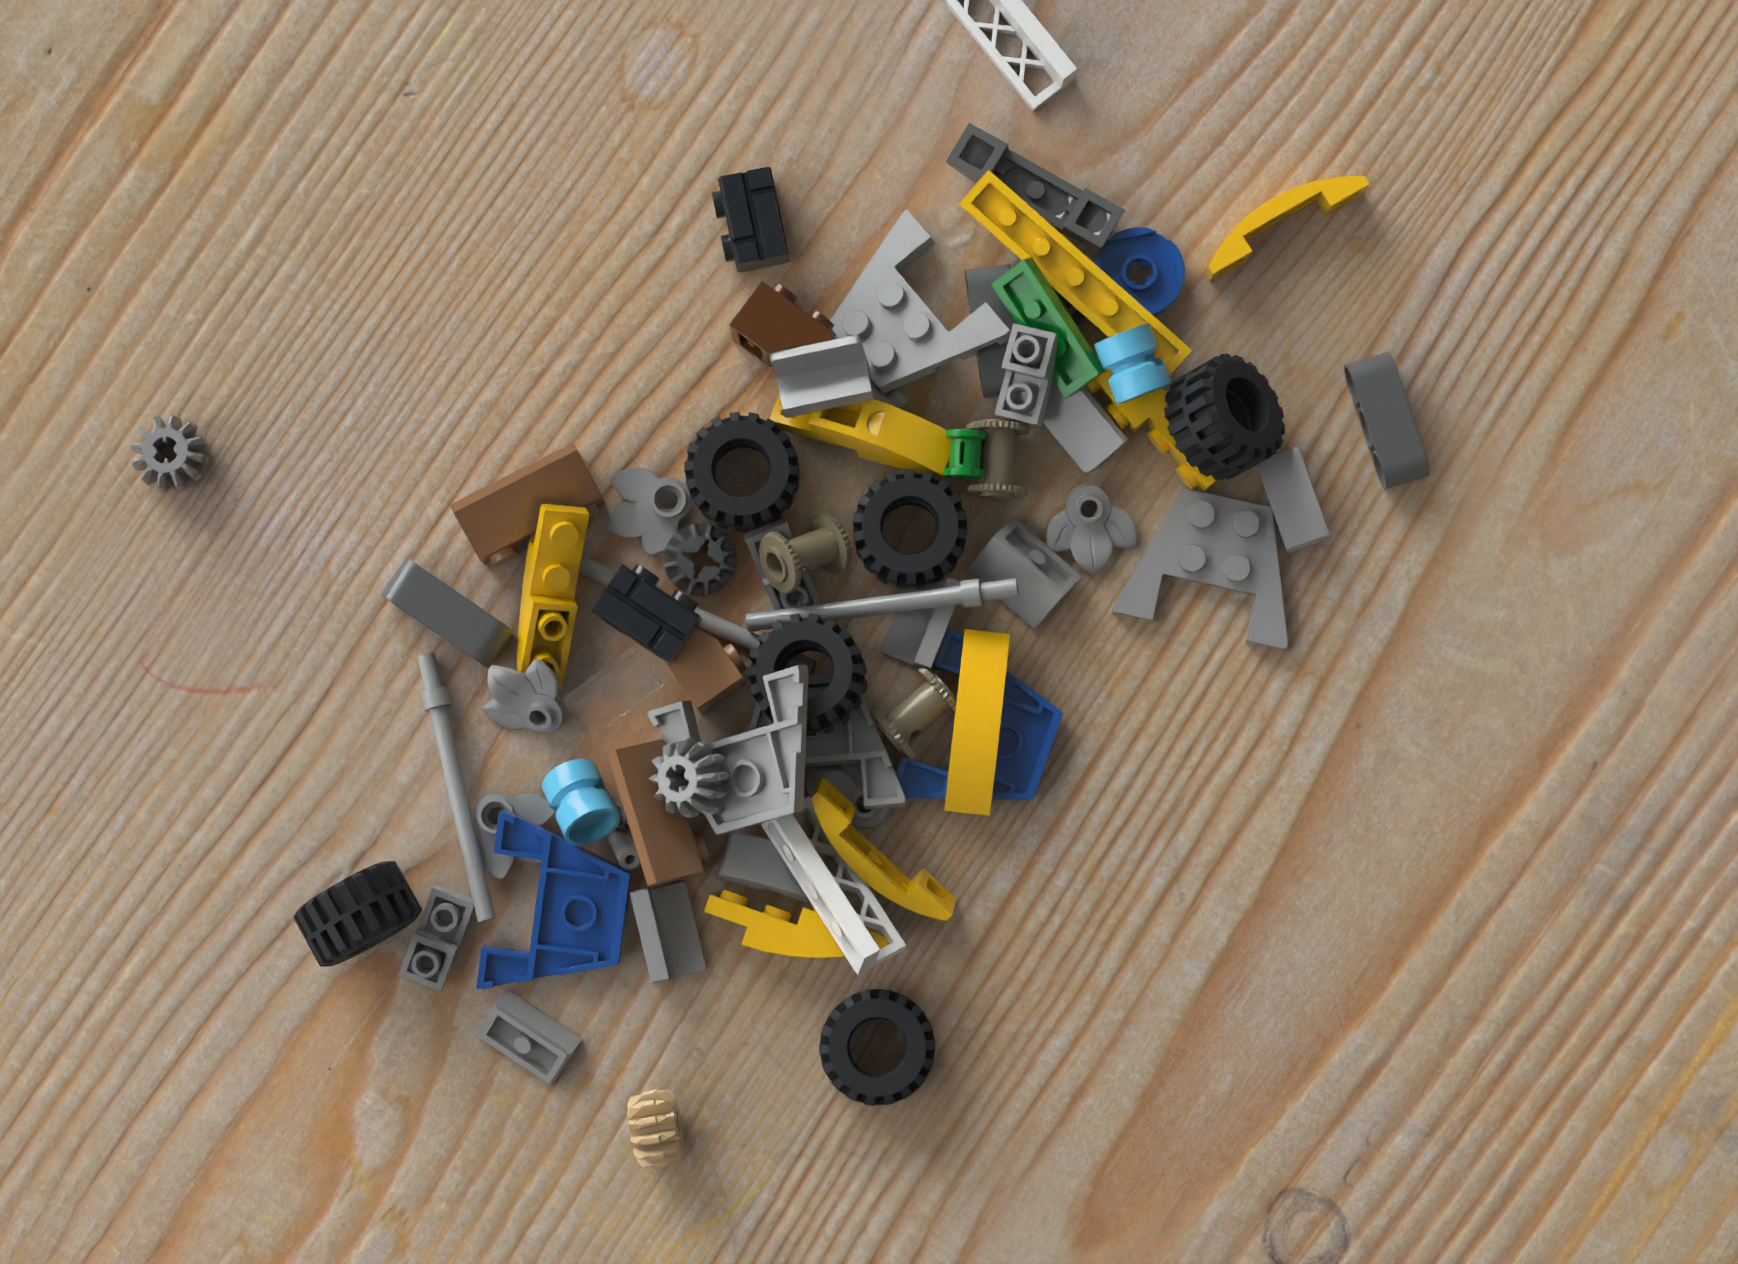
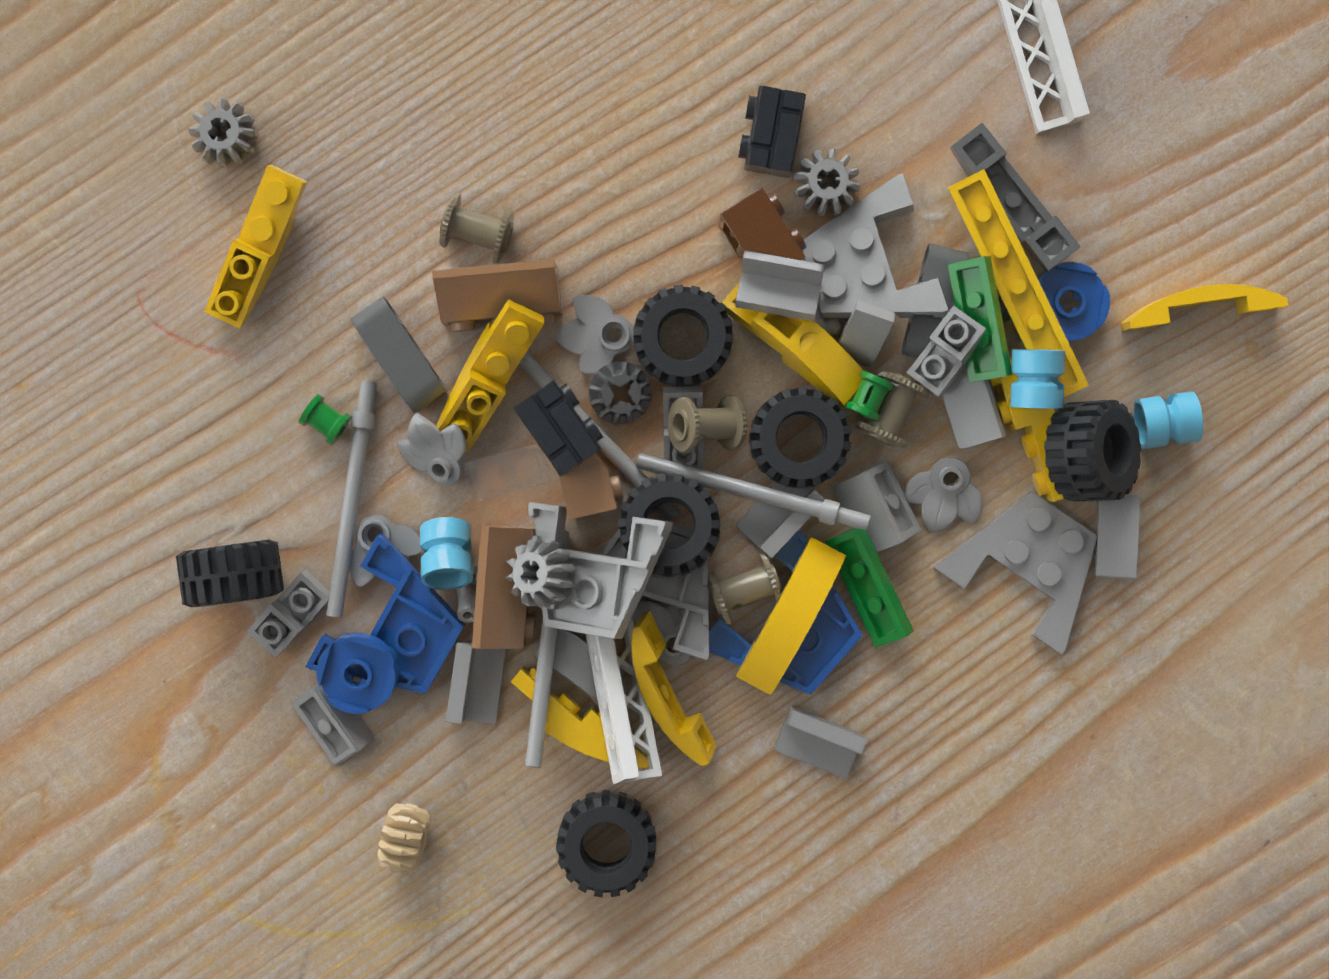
camera: 20 degrees right, 5 degrees up
(251, 559) = (257, 247): none -> yellow slope
(394, 713) = (324, 419): none -> green bush
(477, 445) = (476, 228): none -> dark tan hose
(518, 988) = (338, 683): none -> blue plate
(741, 908) = (542, 690): none -> light grey bar
(821, 237) = (824, 168): none -> light grey gear
(934, 389) = (866, 332): none -> light grey slope
(1051, 658) = (870, 587): none -> green plate
(1064, 848) = (819, 742): none -> light grey panel
(1298, 352) = (1175, 419): none -> medium azure wheel
(1386, 420) = (1219, 502): dark grey beam -> none

